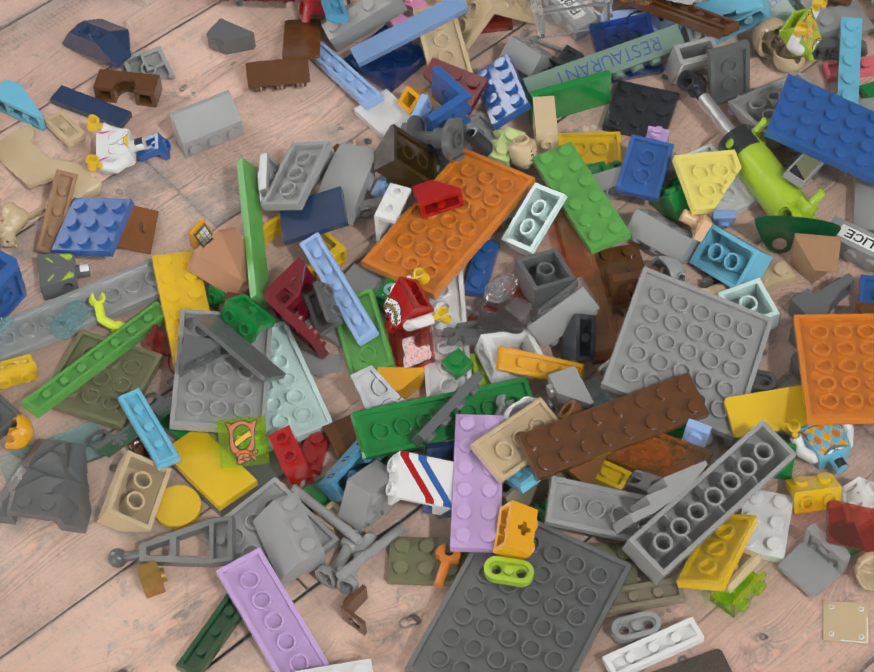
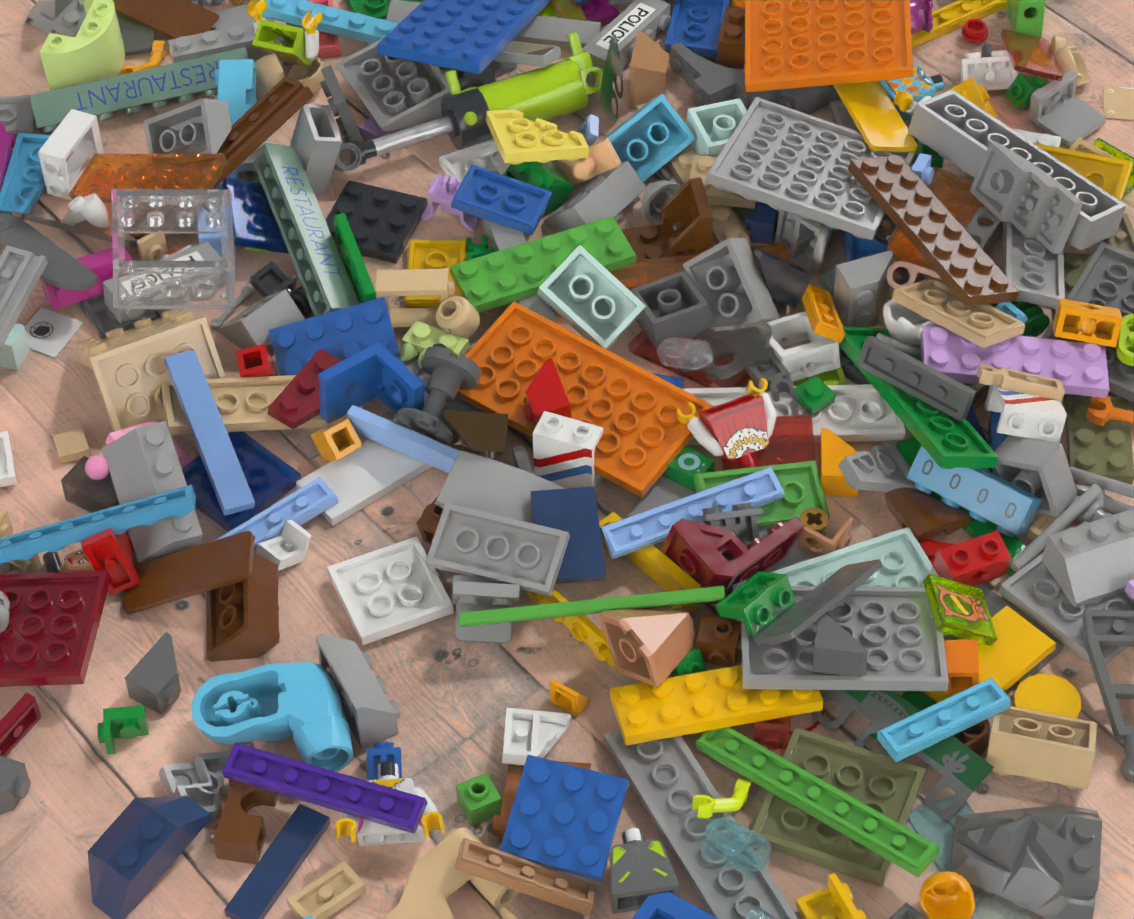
camera: 90 degrees left, 5 degrees down
(124, 111) = (325, 788): none -> dark purple tile
(125, 190) = (478, 799): none -> bright green plate
(169, 216) = (531, 733): none -> white wing
(191, 22) = (122, 723): none -> green bracket
(193, 81) = (276, 705): none -> medium azure piece
(198, 444) = (961, 664): none -> orange brick
(279, 134) = (389, 590): none -> white plate
(323, 383) = (841, 539): none -> nougat bracket
(326, 86) = (288, 548): none -> white bracket
(337, 368) = (816, 520): none -> pearl gold bush
(441, 478) = (1021, 382): none -> tan plate
(478, 54) = (255, 362): none -> red brick

